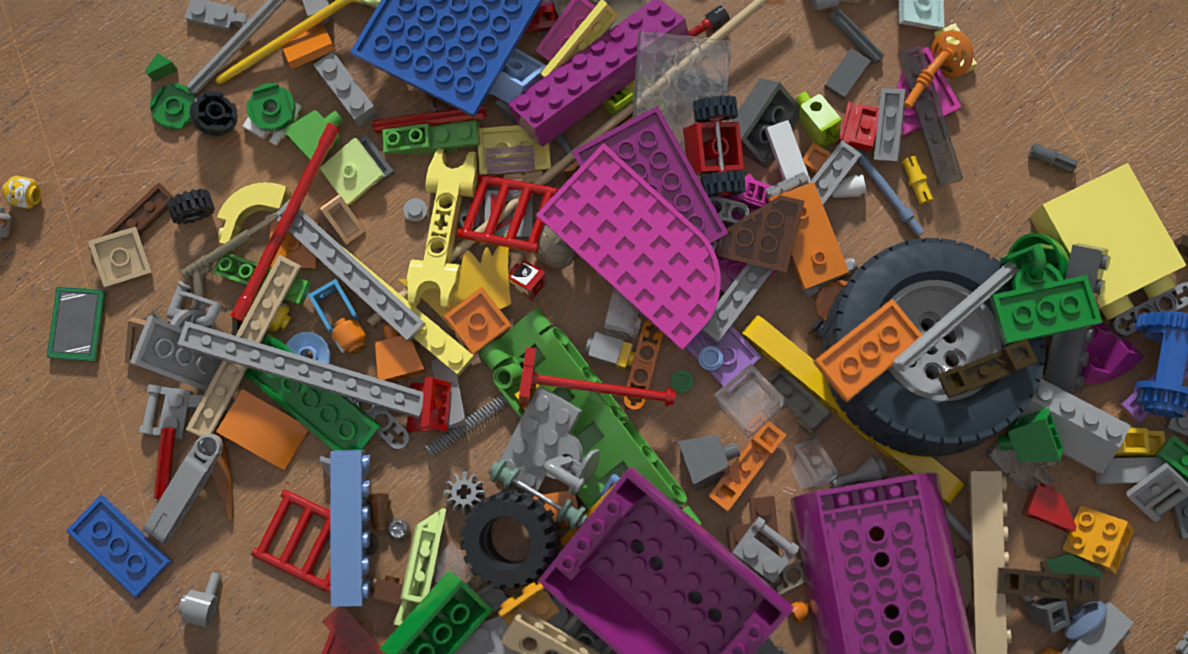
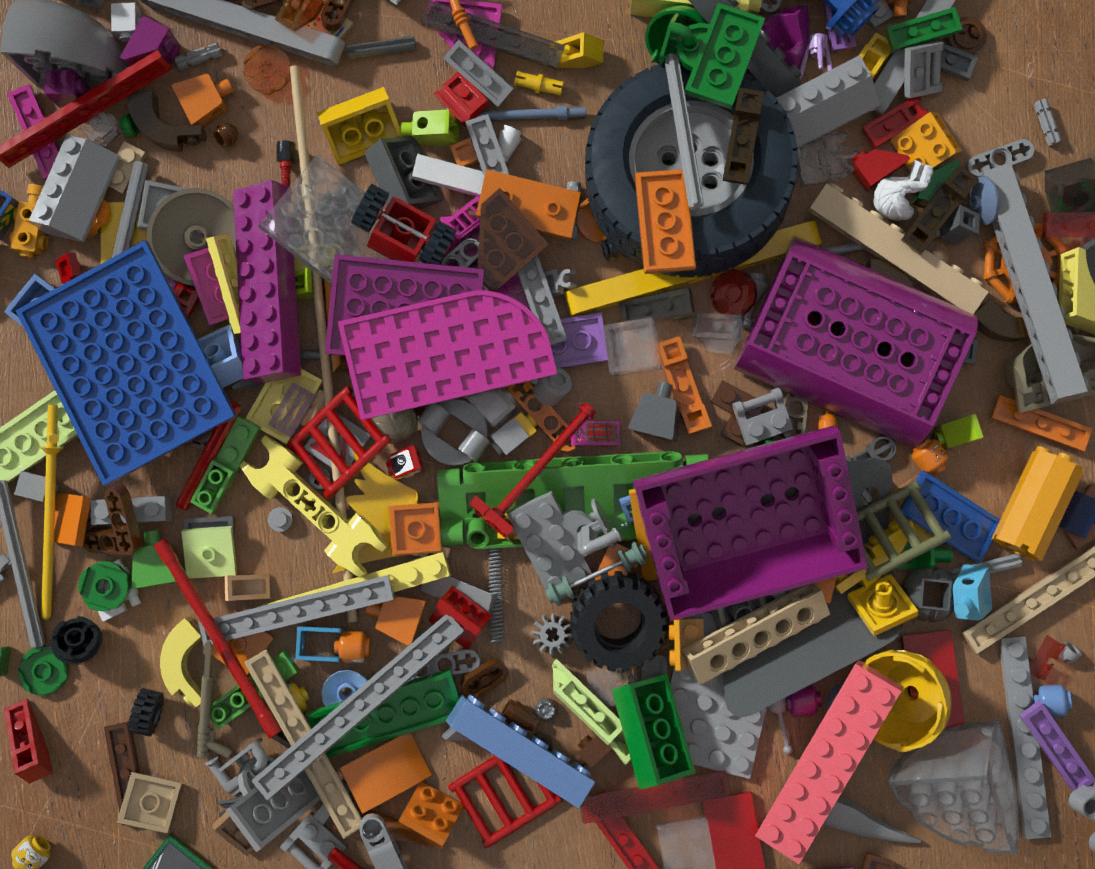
camera: 55 degrees left, 5 degrees up
(108, 131) = (26, 742): none -> red slope
(251, 489) = (431, 813): none -> orange plate
(321, 94) = (124, 536): none -> reddish brown beam
(392, 461) = (484, 678): none -> reddish brown plate
(578, 279) = (436, 417): none -> light grey piece
(656, 420) = (597, 434): none -> tile
(669, 357) = (552, 388): none -> light grey piece
(682, 381) = (579, 392): green piece -> none
(710, 358) = (576, 355): light blue plate -> none
(763, 303) = (558, 279): none -> light grey plate
(780, 58) = (358, 124): none -> yellow slope
(787, 185) = (474, 192): light grey axle -> none
(847, 74) = (408, 77): dark grey tile -> none
(854, 456) = (733, 292): none -> clear red tile
(968, 196) = (581, 51): none -> yellow slope
(1033, 438) = (817, 138): green torso -> none
(1035, 532) = (890, 192): none -> white hair
(1097, 497) = (893, 122): none -> red plate
(1113, 390) = (818, 48): none -> lavender plant
(1151, 617) = (1013, 147): none -> light grey beam

